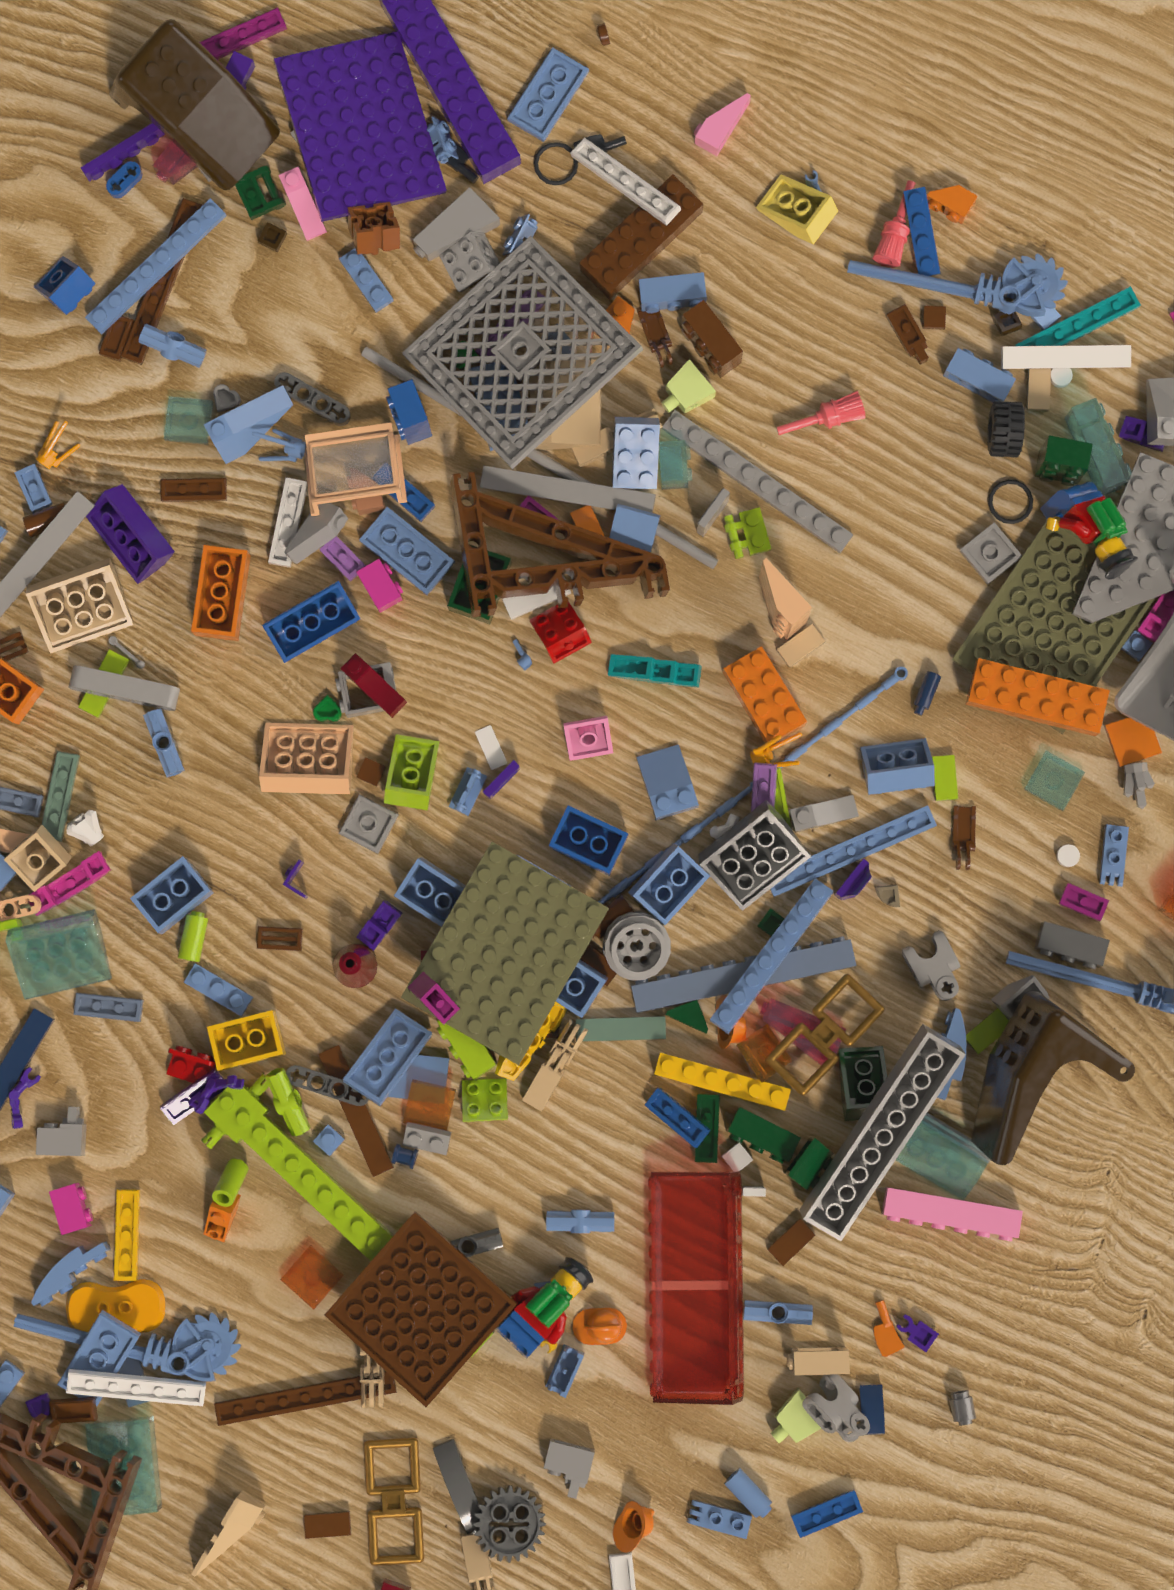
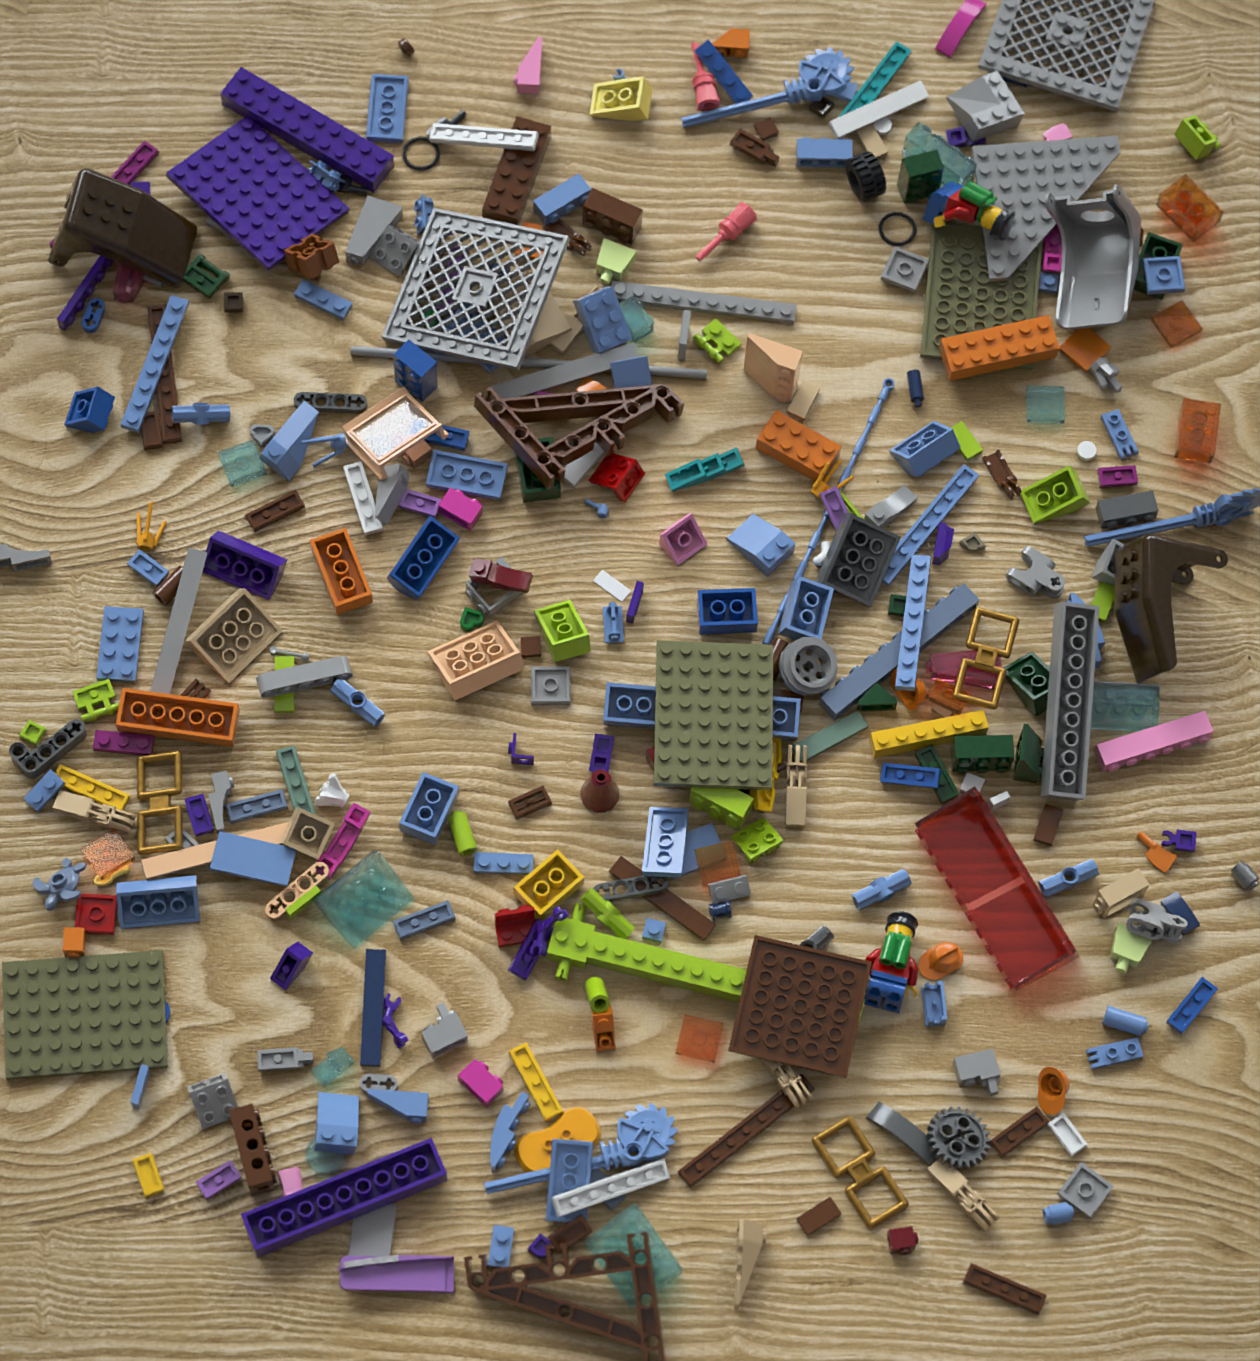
camera: 40 degrees left, 15 degrees down
(302, 203) = (242, 267): bright pink slope -> none
(433, 997) = (680, 765): magenta slope -> none
(576, 1547) = (1019, 1132): none -> reddish brown tile
(1004, 890) = (1055, 495): none -> lime slope

